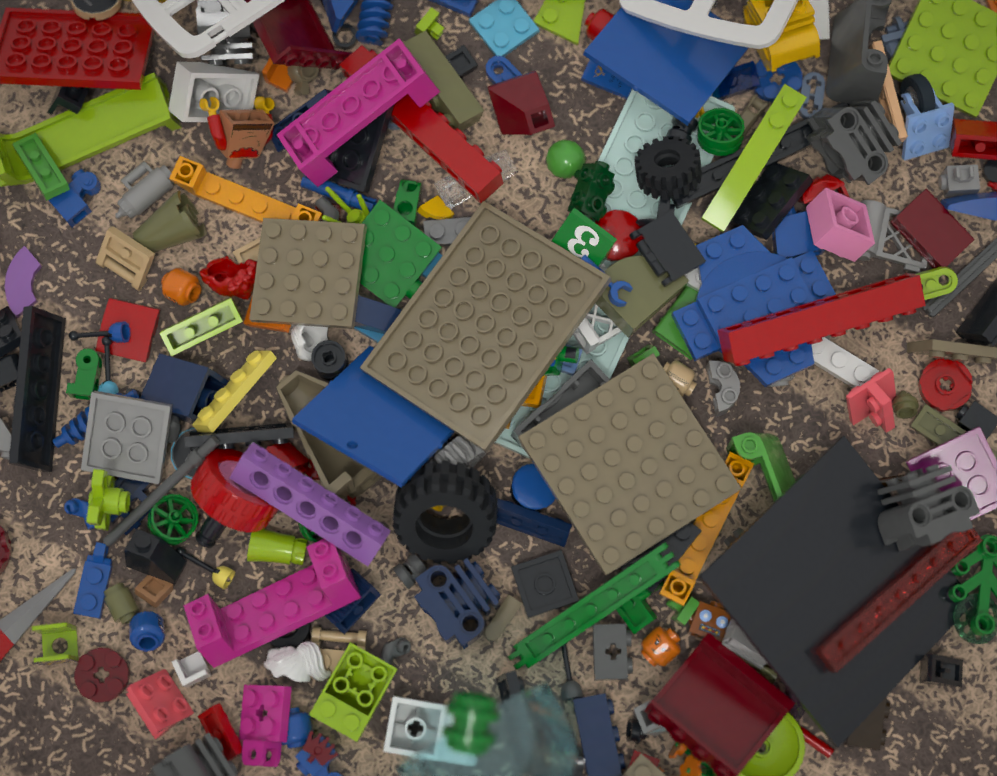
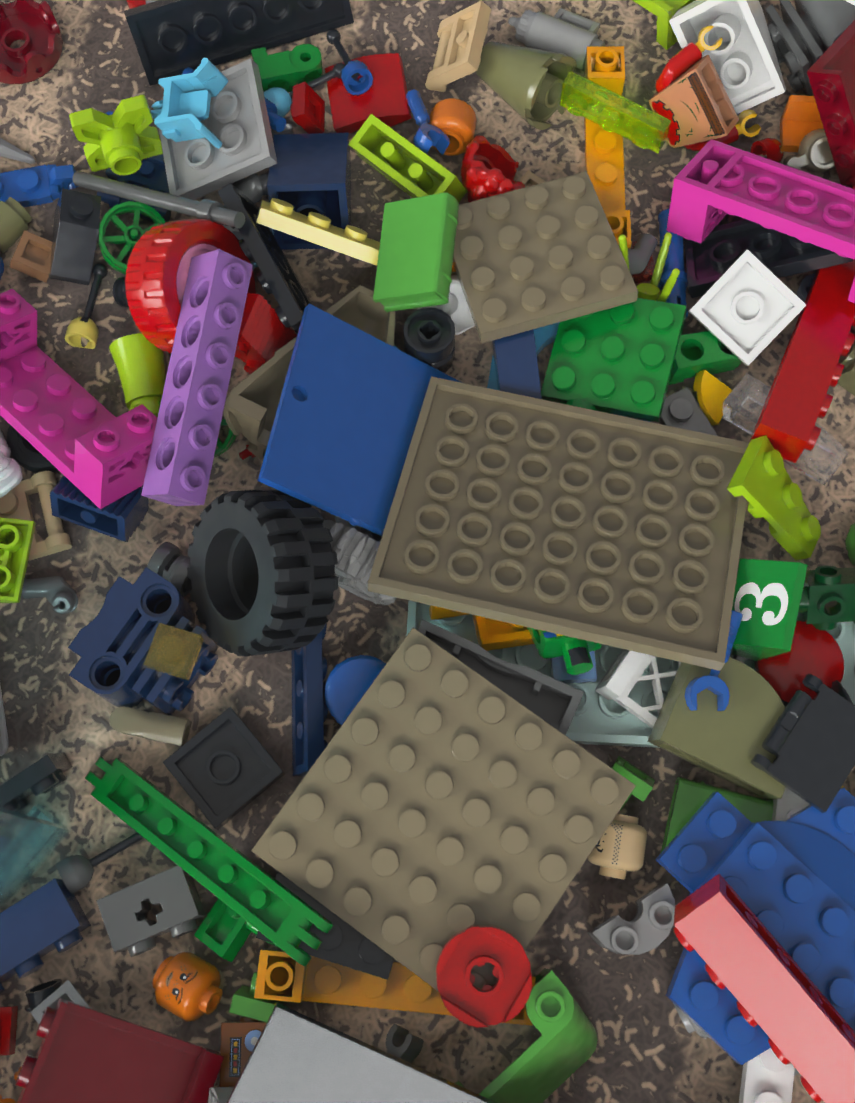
camera: 70 degrees right, 5 degrees down
(107, 445) = (187, 102): none -> medium azure piece
(124, 373) = (308, 109): none -> red plate
(188, 302) = (427, 134): none -> blue piece
(224, 183) = (614, 112): none -> clear neon green plate
(276, 343) = (416, 252): none -> bright green piece
(286, 97) = (768, 146): none -> red hinge
(396, 165) = (747, 307): none -> white plate
(475, 578) = (174, 651): none -> clear yellow plate
(520, 204) = (776, 498): none -> lime wing
(705, 472) = (490, 1003): none -> red plate

